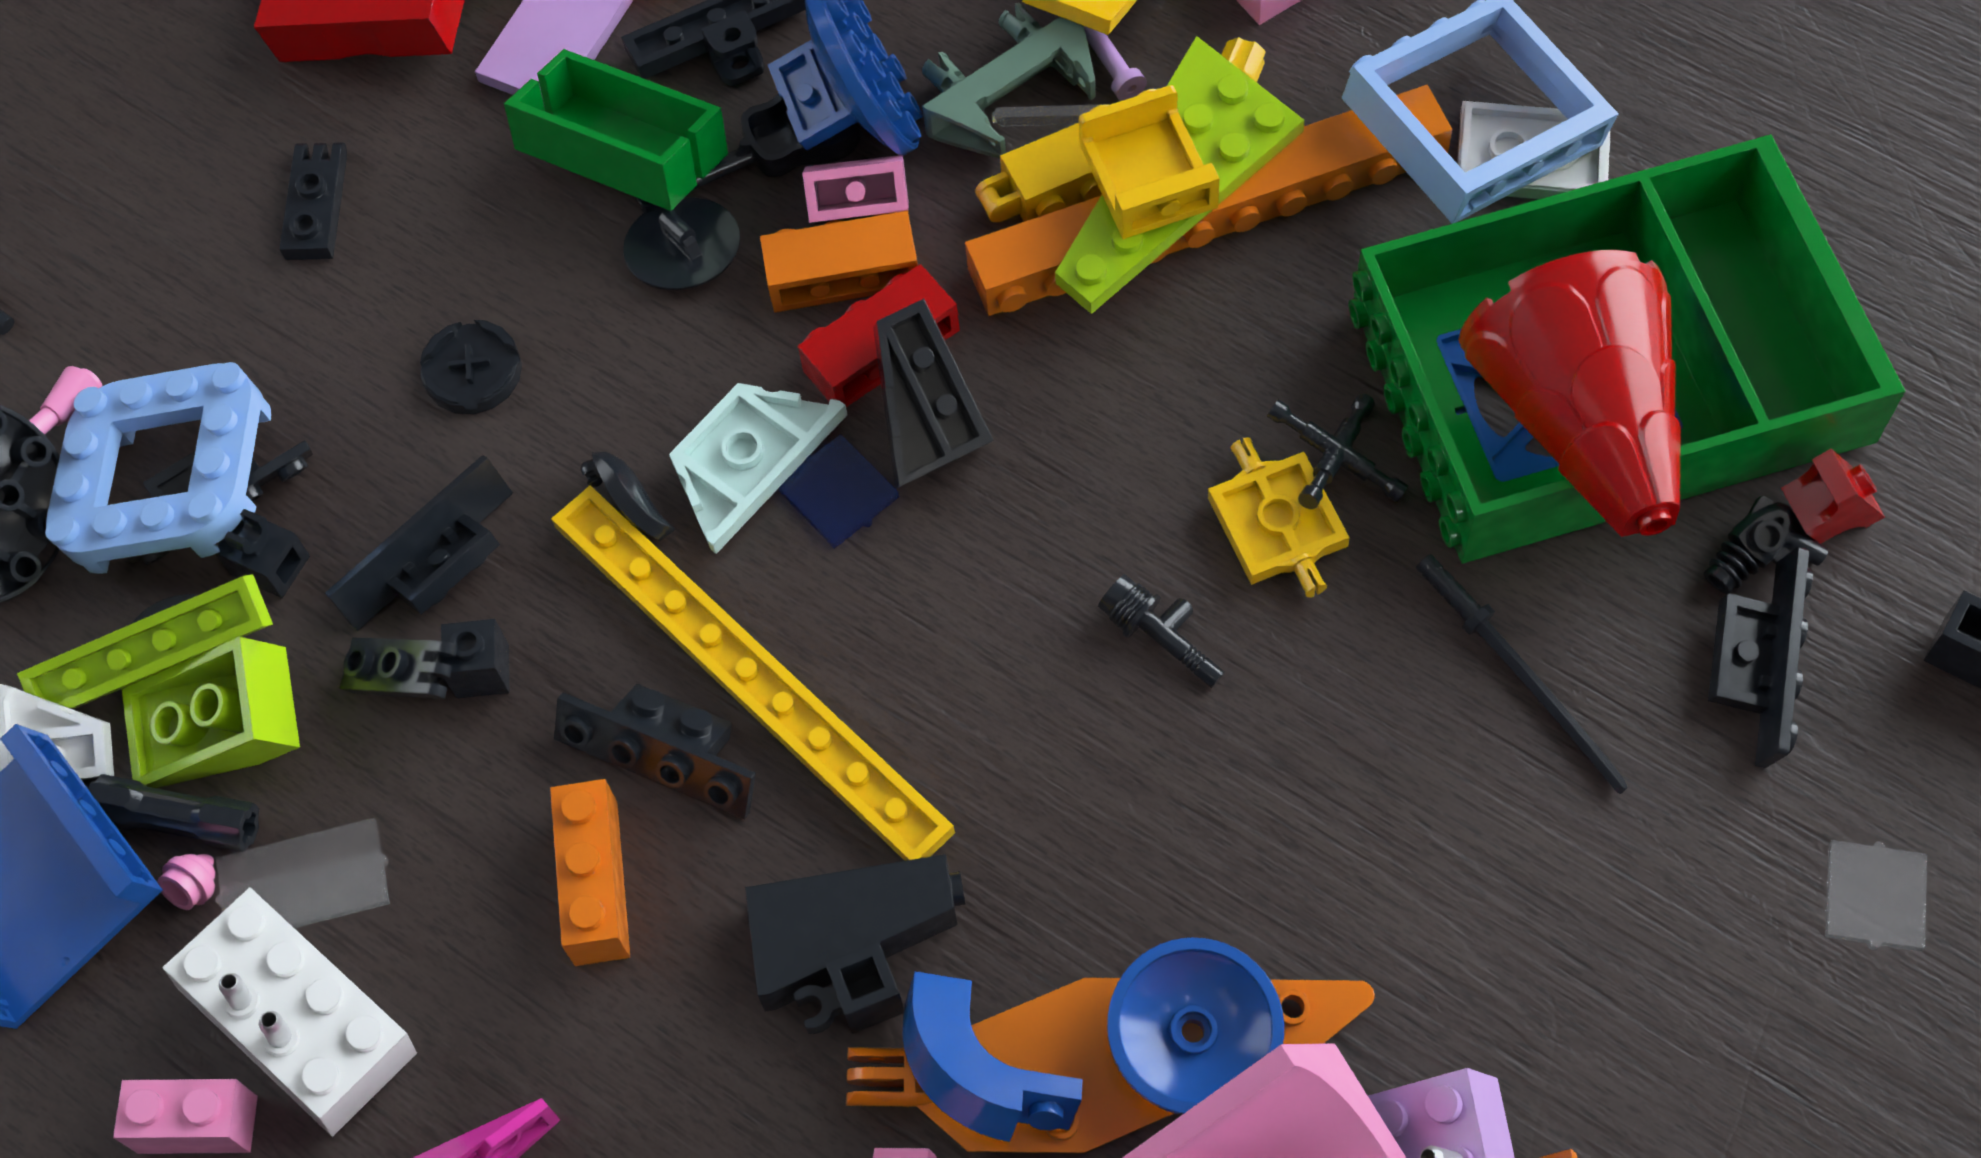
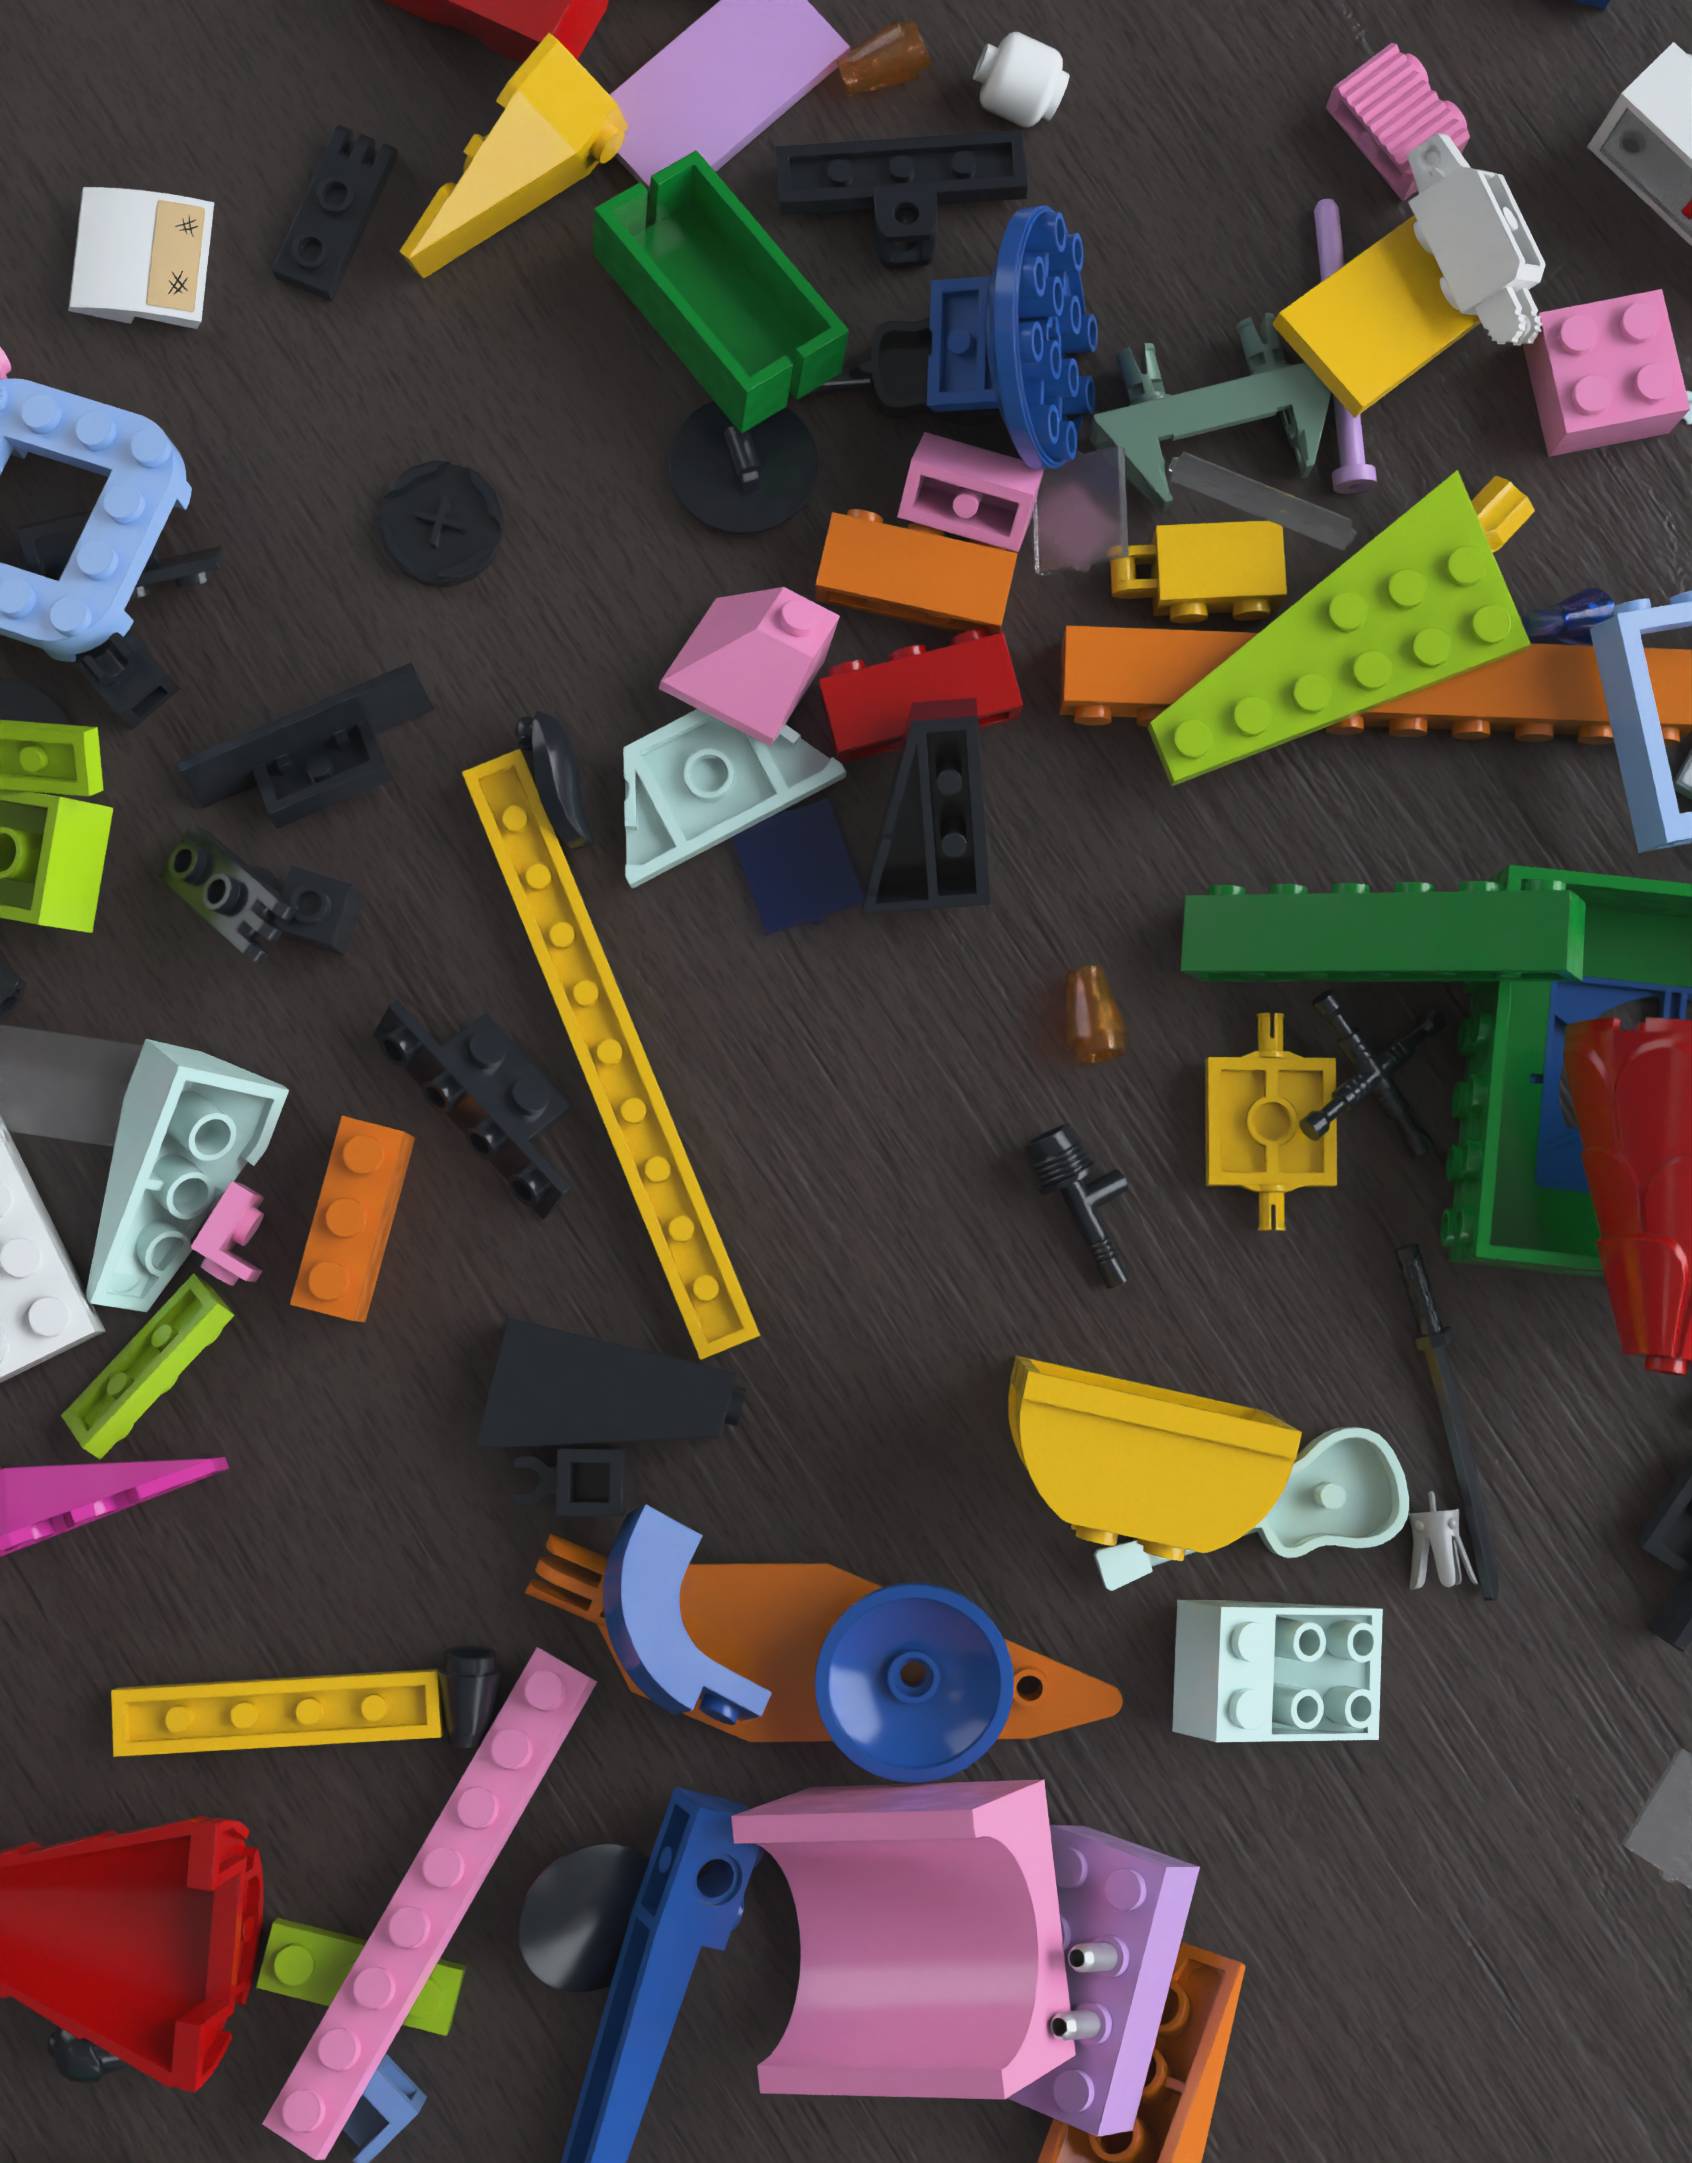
camera: 15 degrees right, 20 degrees up
(177, 278) = (141, 256): none -> white slope
(427, 886) = (177, 1147): none -> light aqua wedge
(447, 95) = (544, 142): none -> yellow wedge
(461, 1057) = (147, 1366): none -> lime plate
(489, 916) = (231, 1222): none -> bright pink bracket
(744, 353) = (753, 659): none -> bright pink slope
(942, 174) = (1081, 513): none -> clear piece
(1110, 501) = (1093, 1018): none -> clear orange cone
(1146, 162) = (1316, 634): yellow panel -> none
(1286, 758) = (1146, 1458): none -> yellow container
(1294, 336) = (1385, 935): none -> green brick
(1323, 103) = (1571, 618): none -> clear blue cone
(1461, 762) = (1339, 1493): none -> light aqua piece
(1481, 910) = (1276, 1671): none -> light aqua slope
(1555, 751) = (1442, 1531): none -> light grey piece

